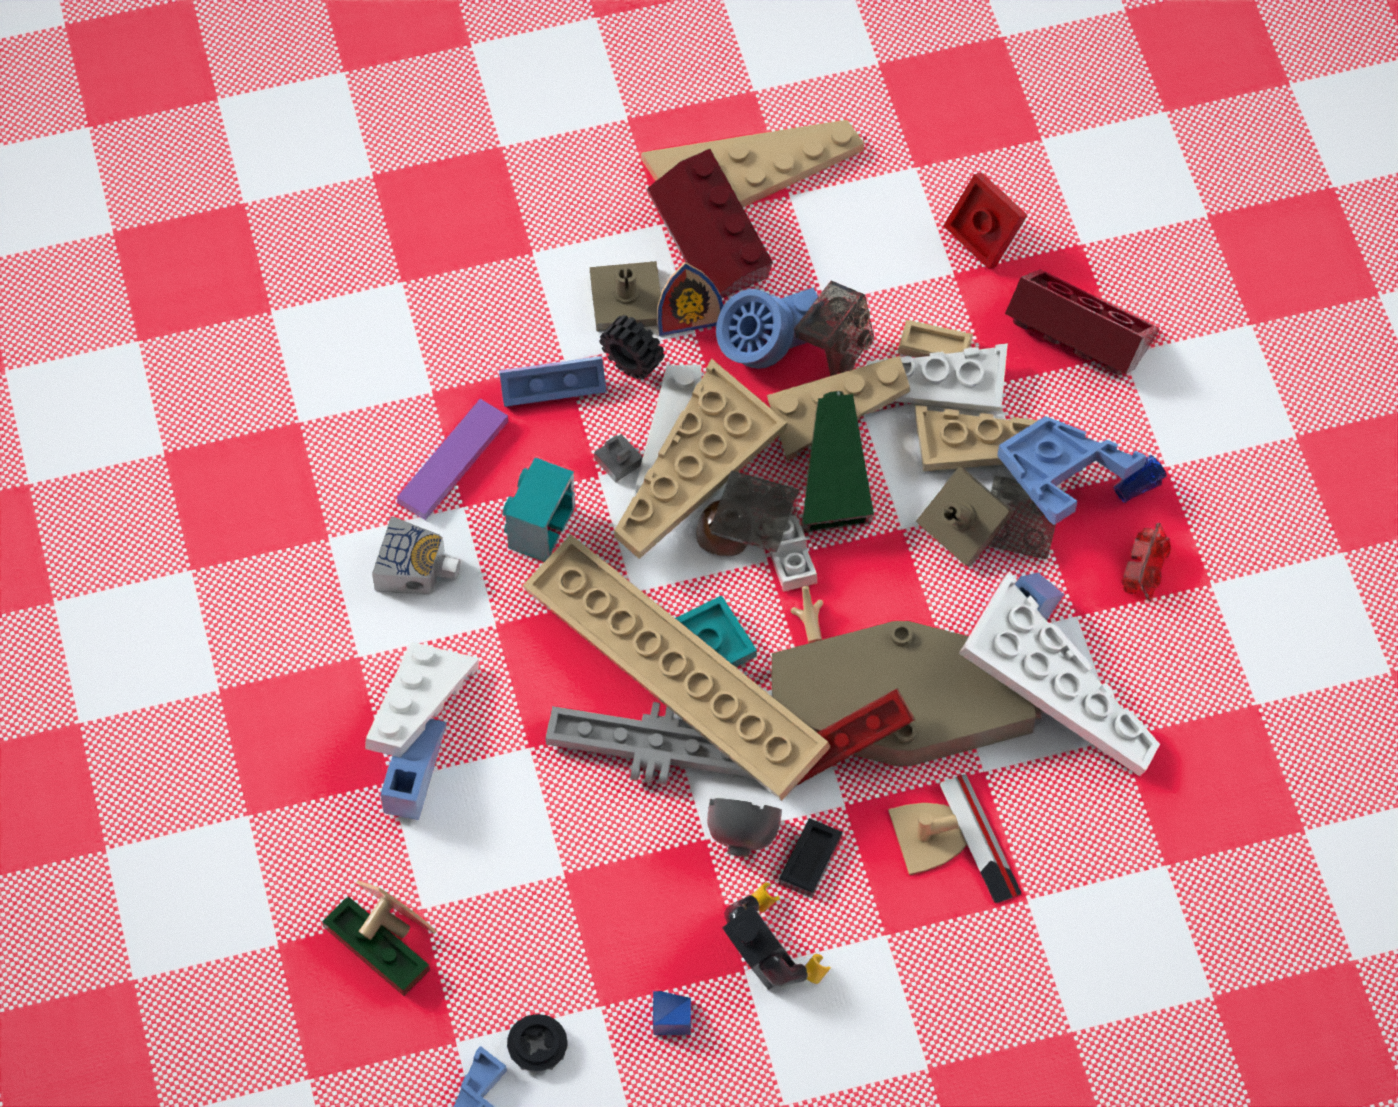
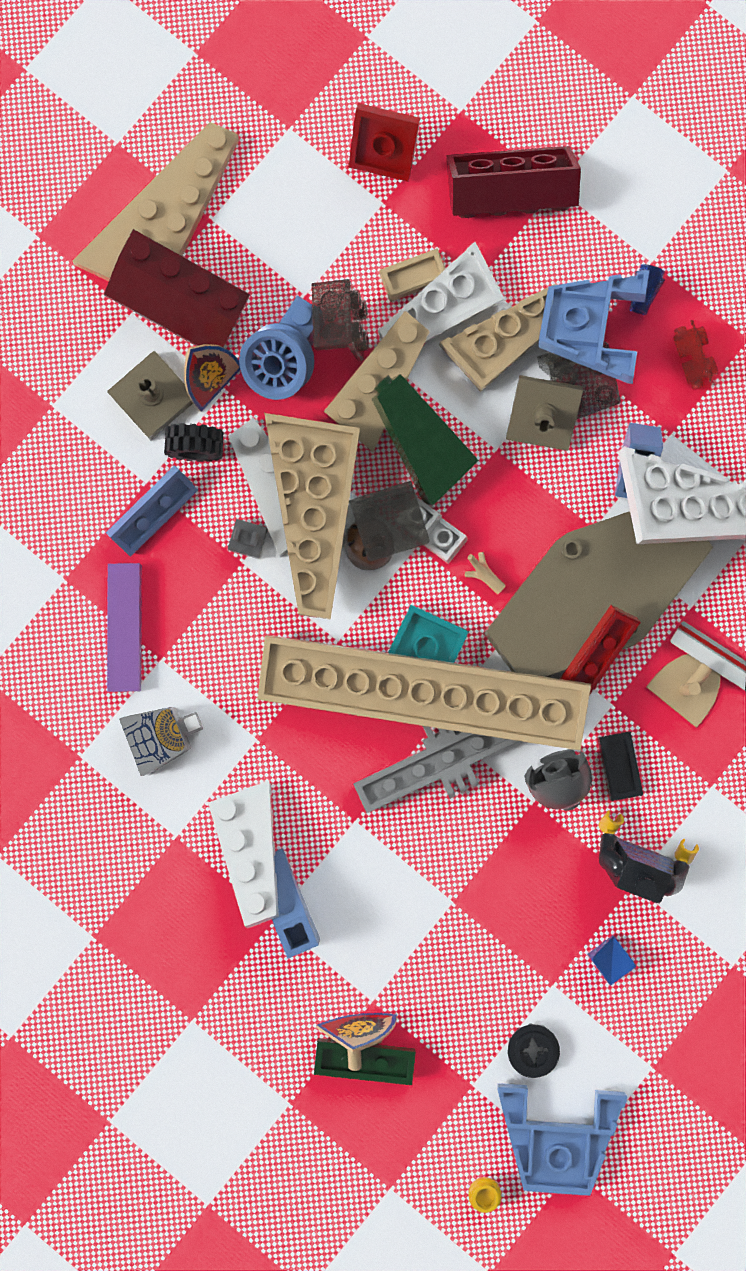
camera: 35 degrees left, 25 degrees up
(542, 500) = (224, 628): teal piece -> none

